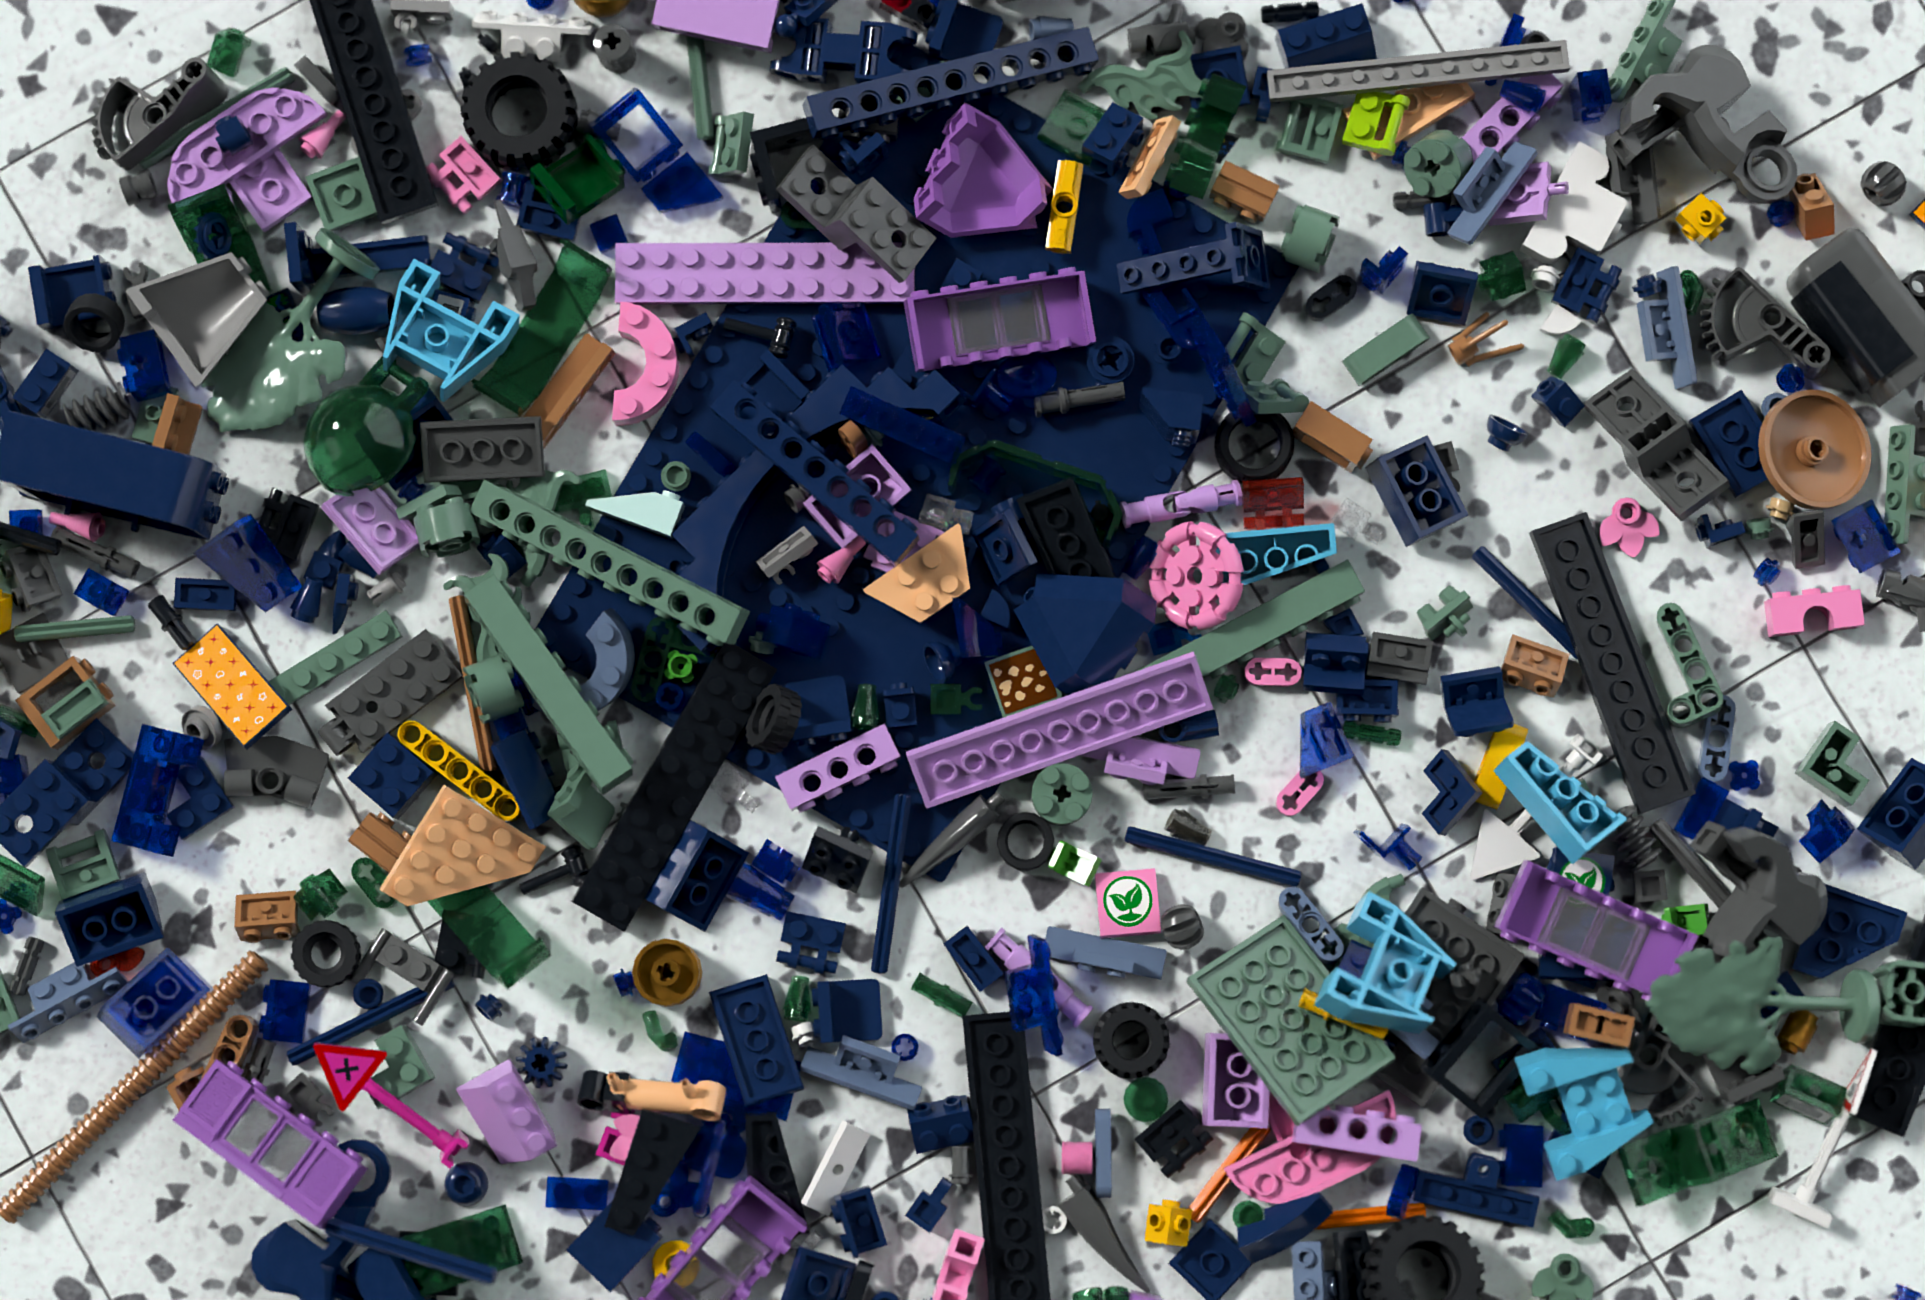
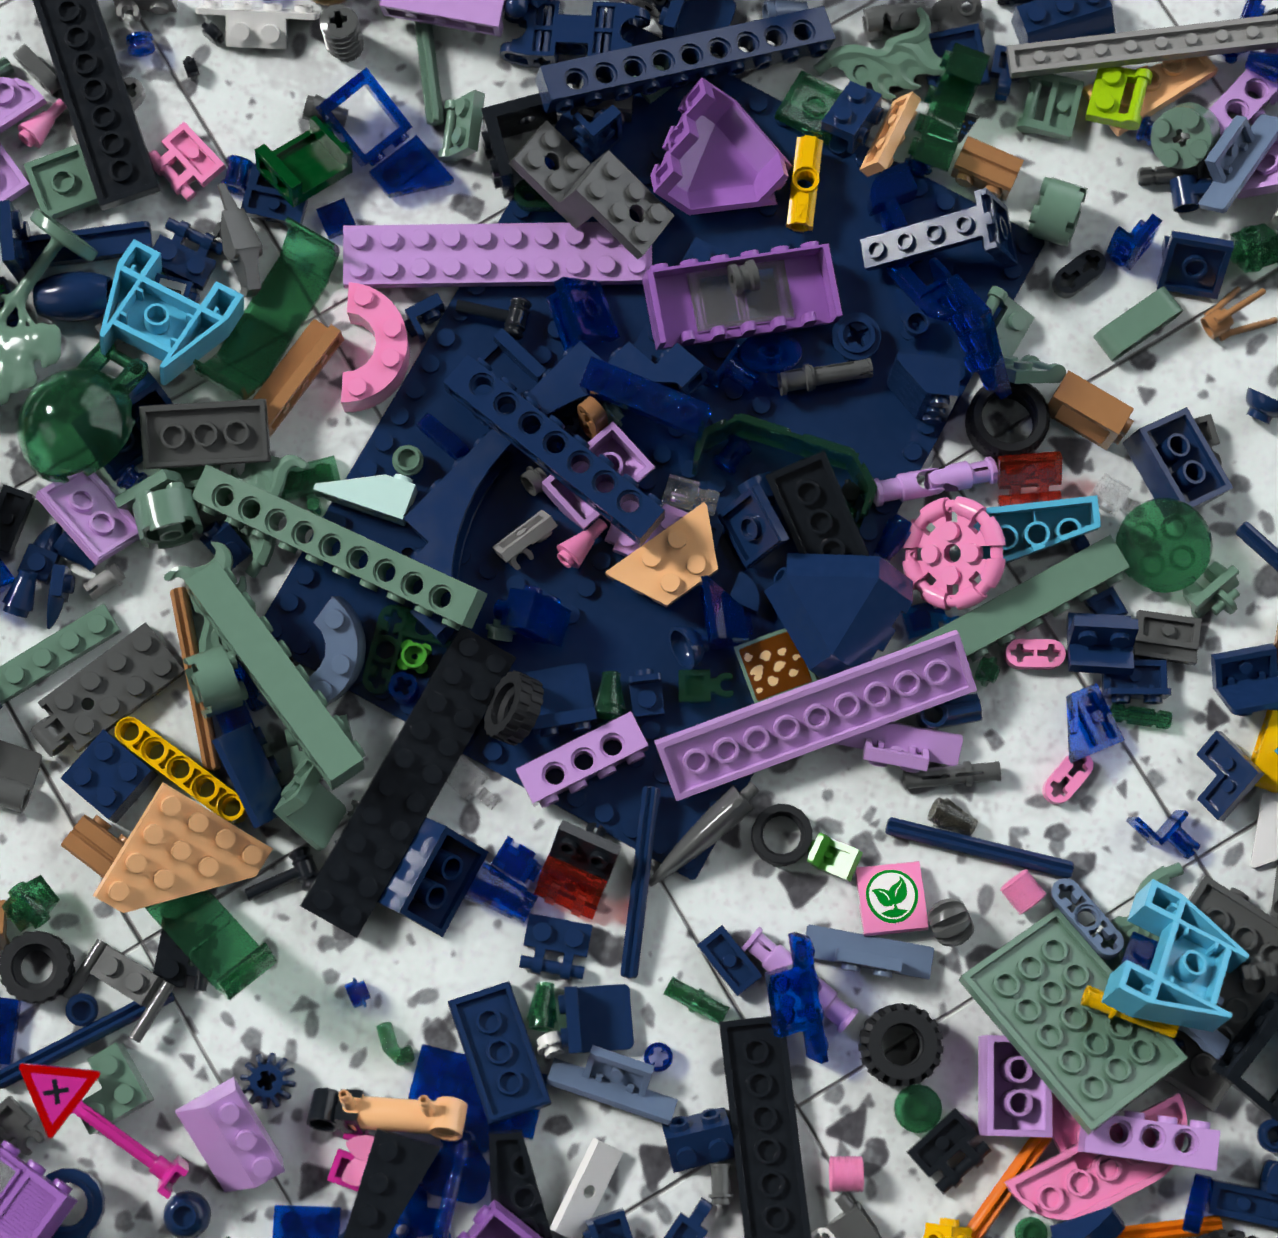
camera: 10 degrees left, 5 degrees down
(369, 887) = (83, 895): clear green beam -> none
(489, 1007) = (212, 1021): dark blue plate -> none
(507, 75) = (241, 59): black tyre -> none
(649, 969) = (386, 970): pearl gold wheel -> none
(824, 888) = (570, 887): none -> clear red plate
(1001, 303) = (743, 277): none -> dark grey wheel
(1076, 784) = (834, 774): sand green brick -> none
(1103, 1153) = (874, 1168): sand blue beam -> none
(1252, 899) = (1023, 891): none -> bright pink piece
(1399, 569) = (1165, 544): none -> clear green tile

